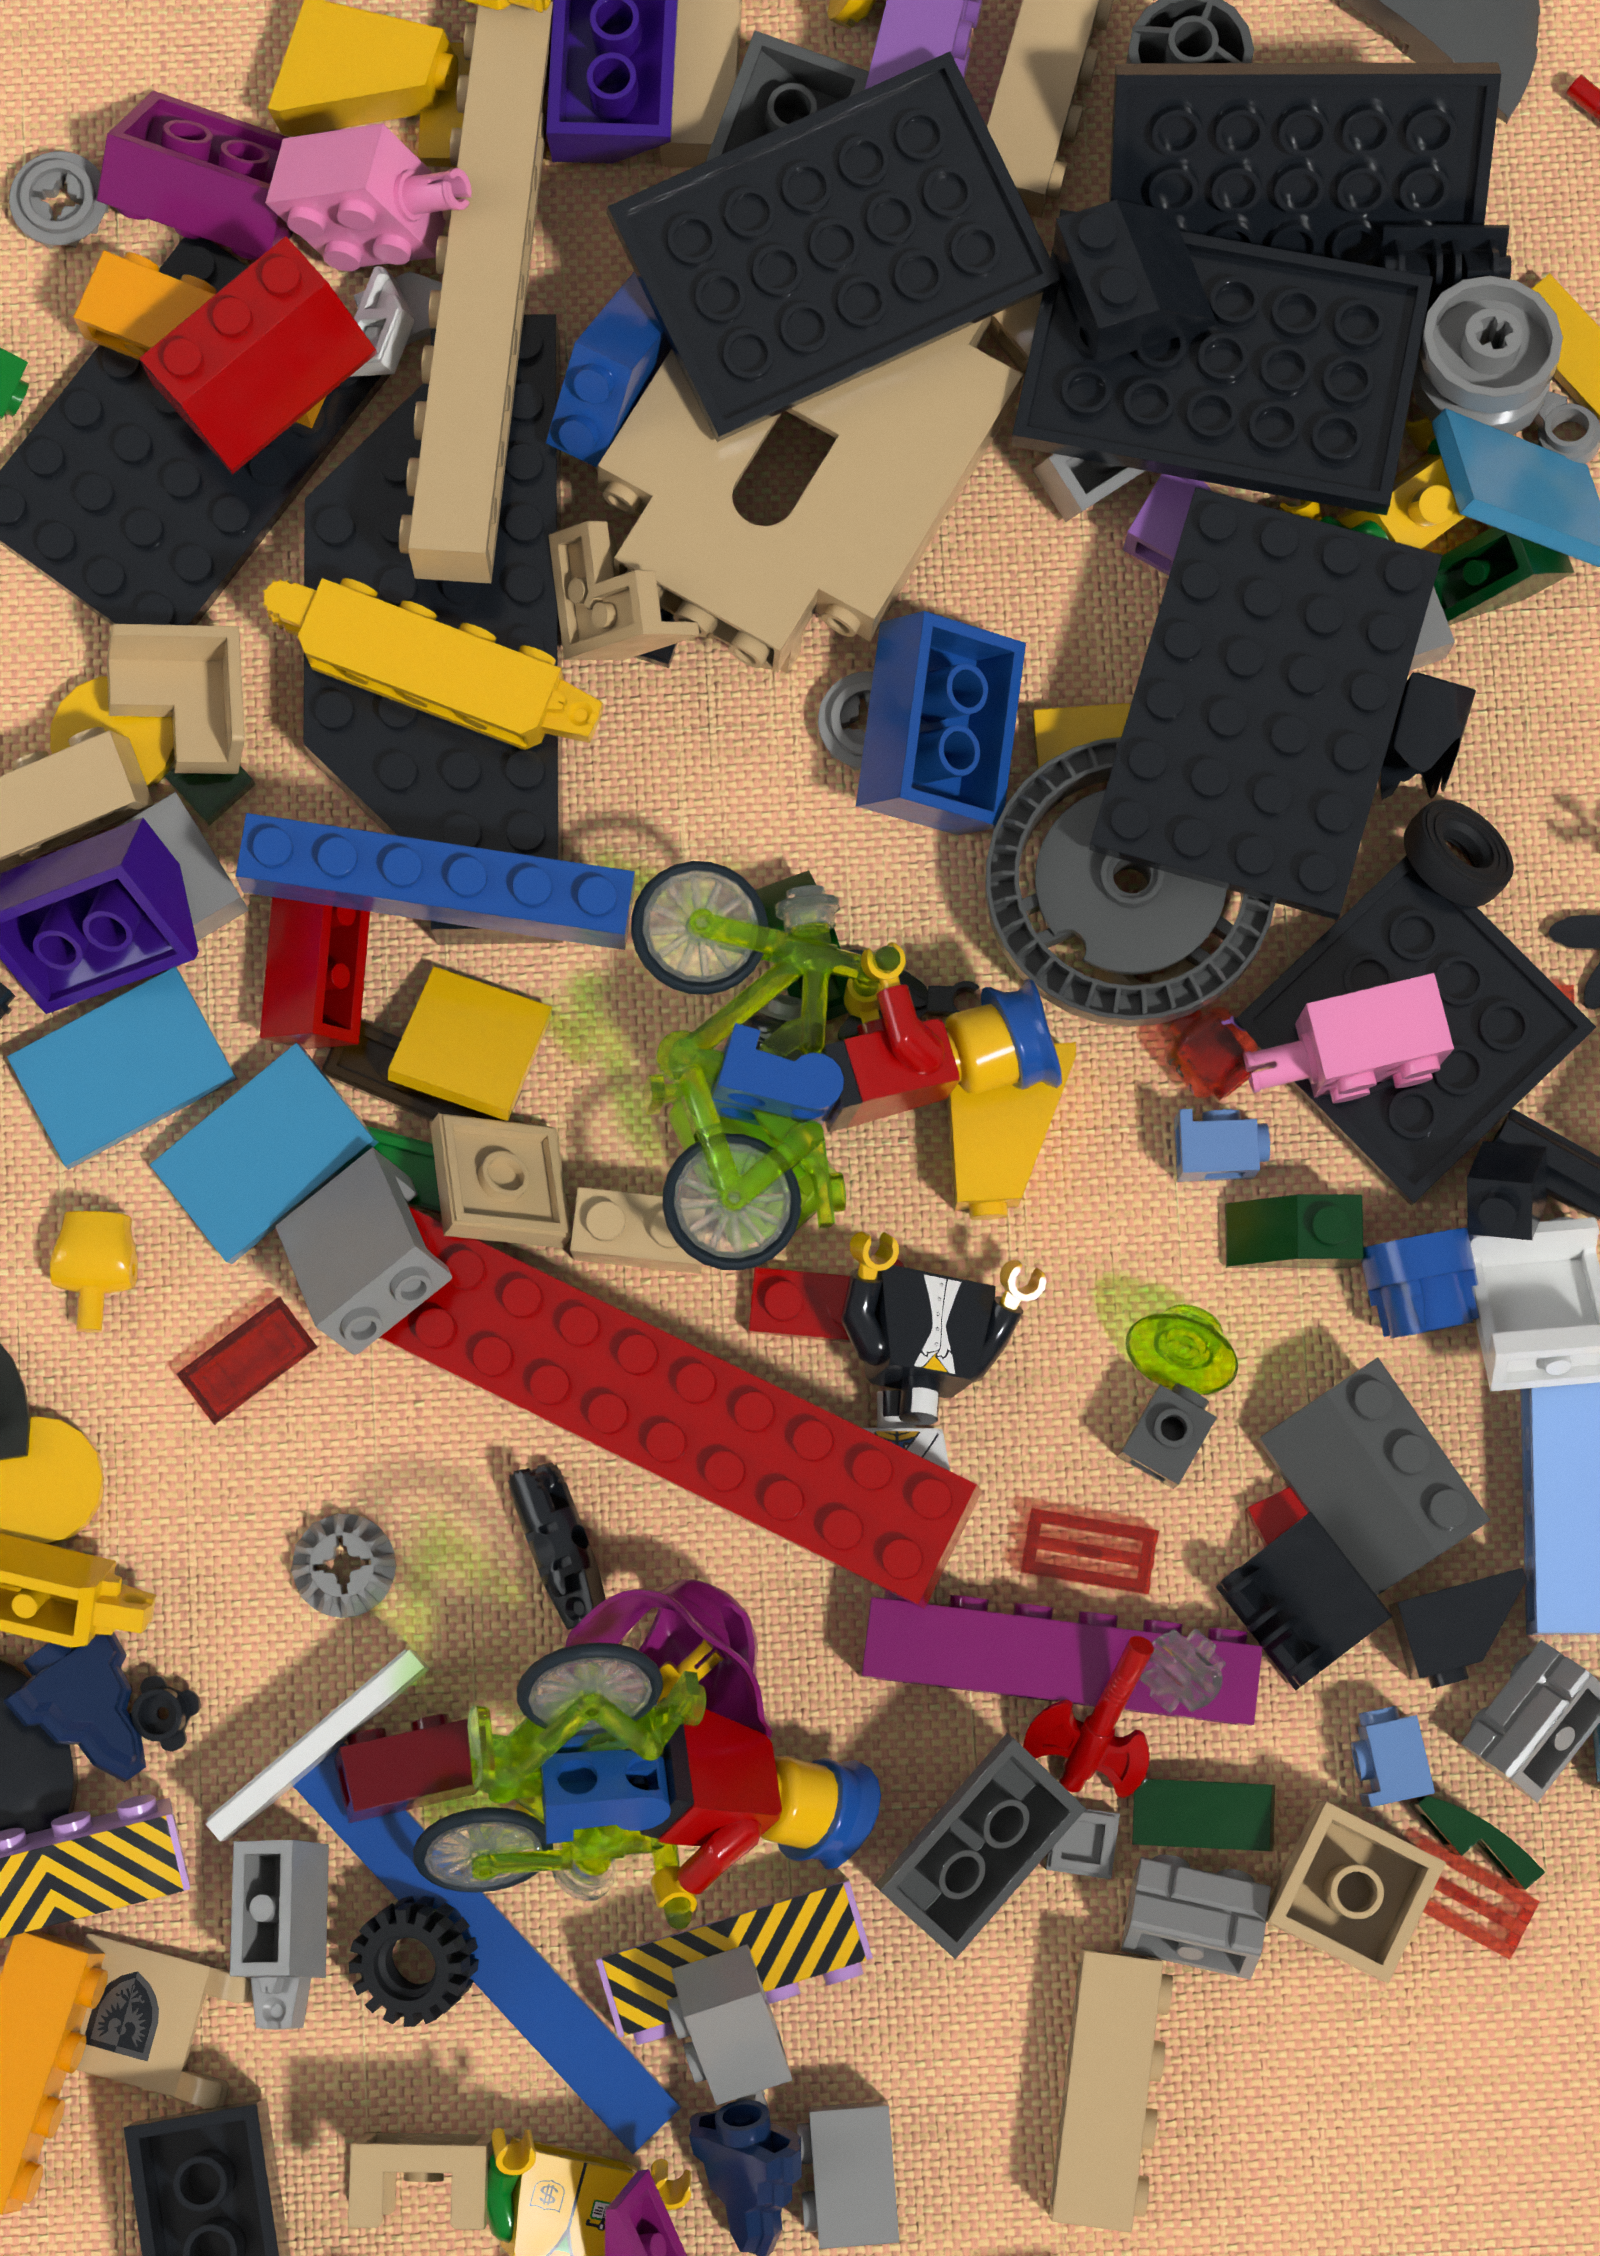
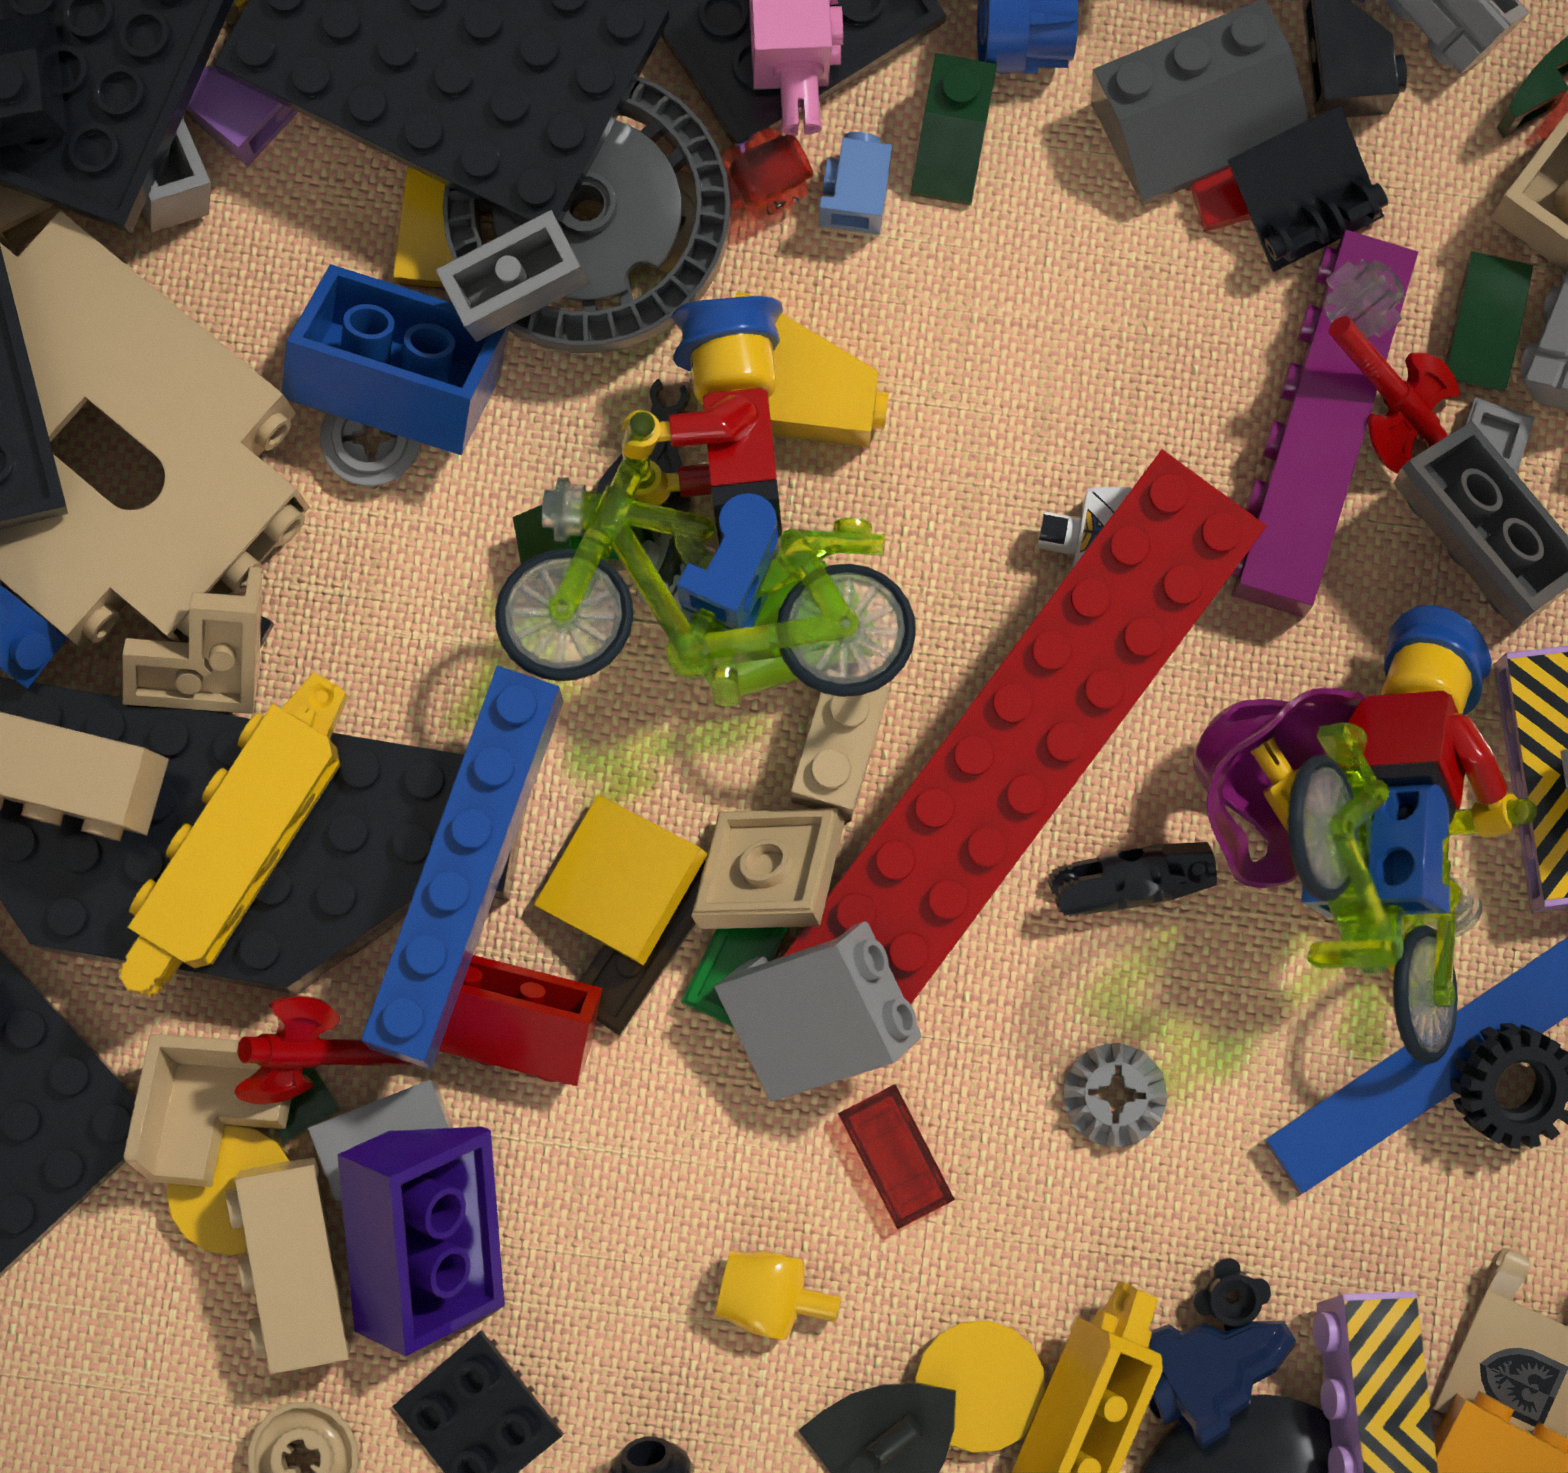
camera: 80 degrees left, 0 degrees up
(121, 1067) = (576, 1236): dark azure tile -> none
(239, 756) = (299, 1047): none -> red piece
(263, 1153) = (692, 1104): dark azure tile -> none
(279, 1925) = (1463, 1210): light grey hinge -> none
(316, 1745) = (1294, 1143): white tile -> none
(404, 1769) = (1332, 1057): dark red brick -> none
(799, 1304) = (941, 579): red hinge -> none
(927, 1328) = (990, 480): black torso -> none
(1031, 814) = (512, 276): none -> light grey brick
(1142, 1560) = (1239, 332): clear red tile -> none
(1168, 1434) = (1126, 283): dark grey brick -> none
(1183, 1348) = (1049, 251): clear neon green piece -> none
(1391, 1757) = (1465, 138): medium blue brick -> none

